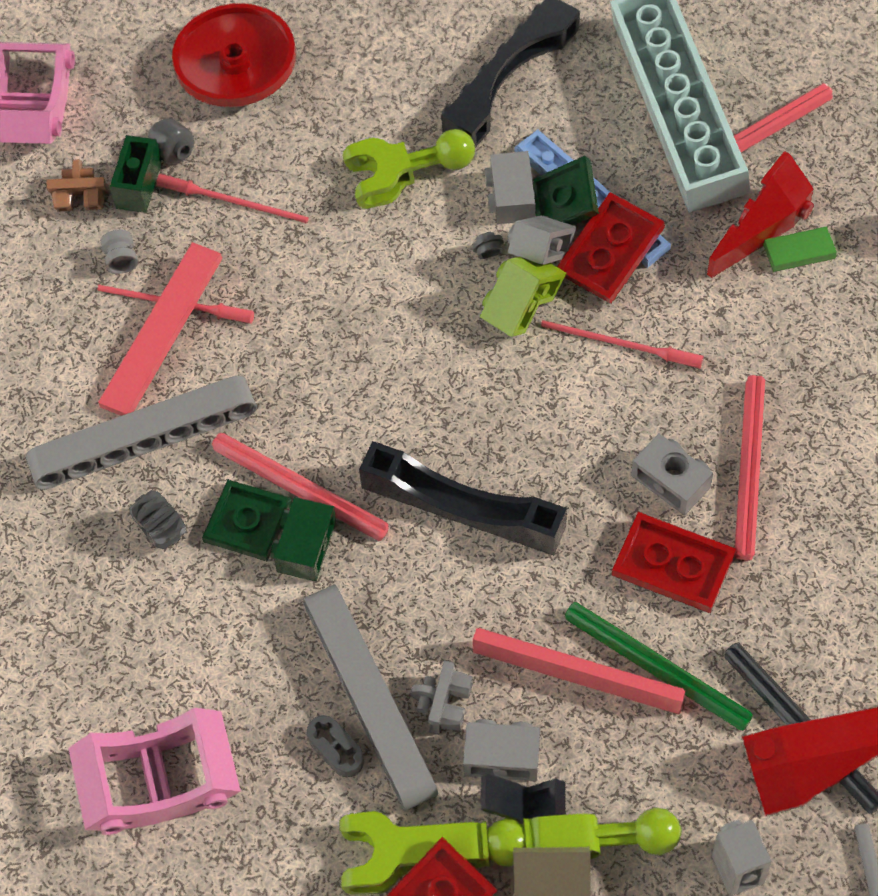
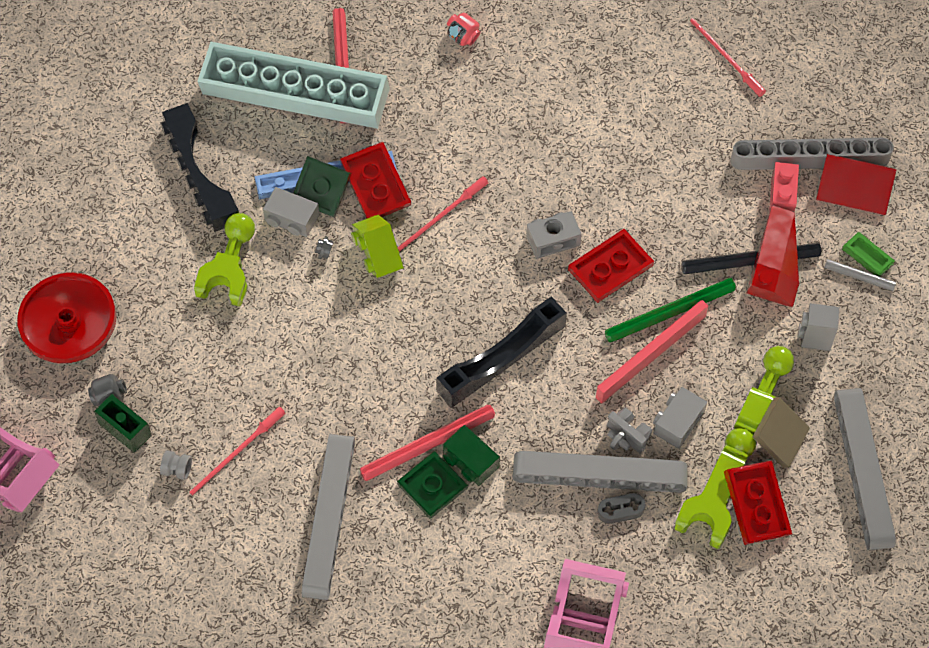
camera: 65 degrees left, 0 degrees up
(78, 184) = (100, 478): nougat hips -> none
(157, 519) = (406, 532): dark grey gear -> none
(160, 330) = (256, 468): coral tile -> none
(189, 187) = (151, 399): coral piece -> none
(522, 802) = (721, 418): black bracket -> none
(540, 239) = (349, 213): light grey brick -> none
(749, 468) = (571, 193): coral axle -> none
(776, 210) = (406, 79): red wedge -> none
(800, 249) = (440, 88): bright green tile -> none

